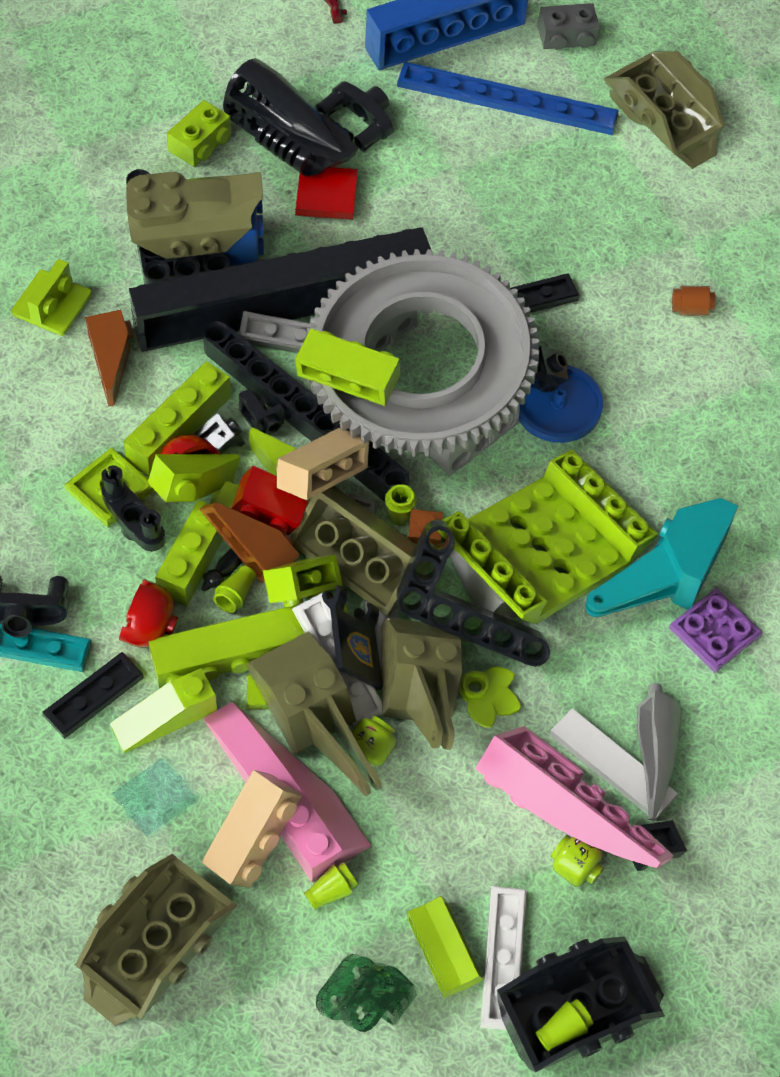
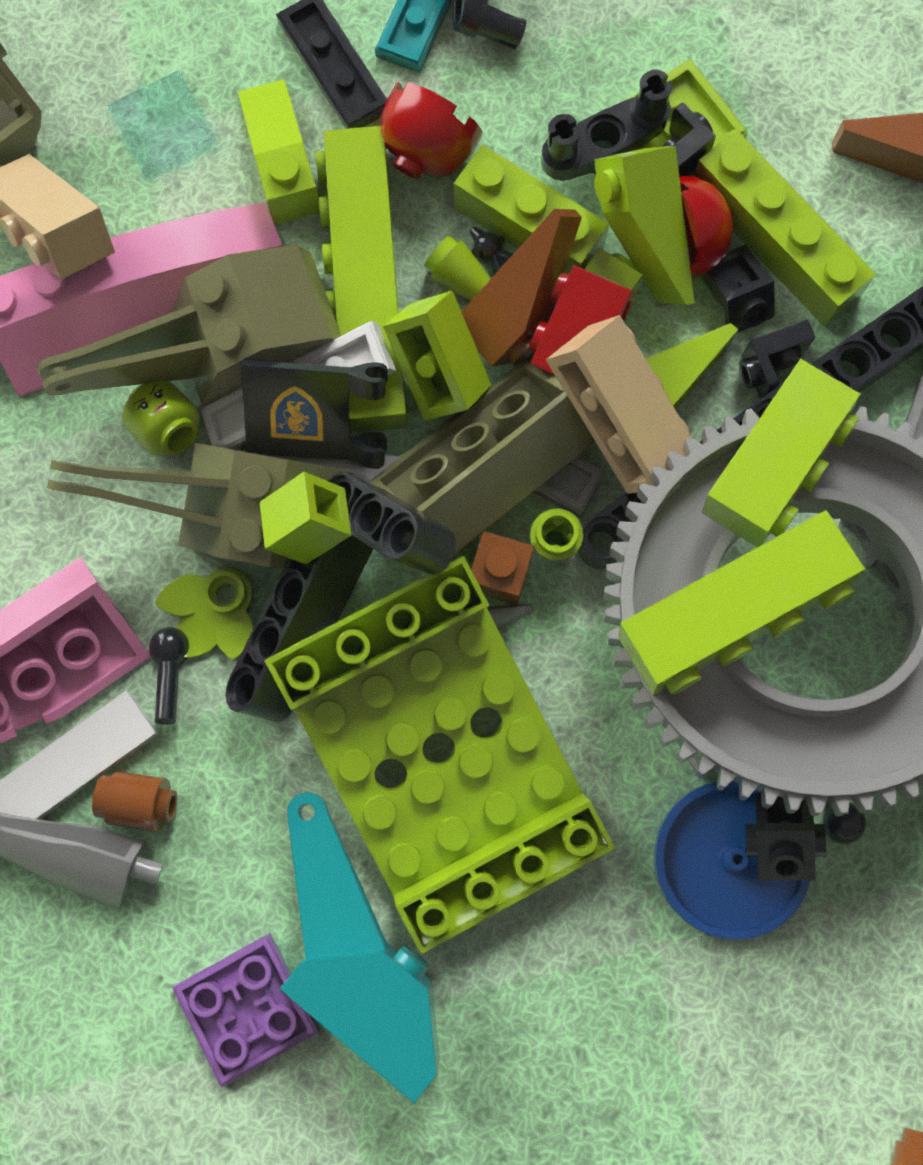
camera: 110 degrees right, 20 degrees up
(135, 466) = (691, 136): none -> black bracket
(433, 610) = (305, 518): none -> lime brick
(439, 373) = (740, 603): none -> lime brick
(518, 716) = (167, 650): none -> black bar
(616, 709) = (134, 801): none -> dark orange brick

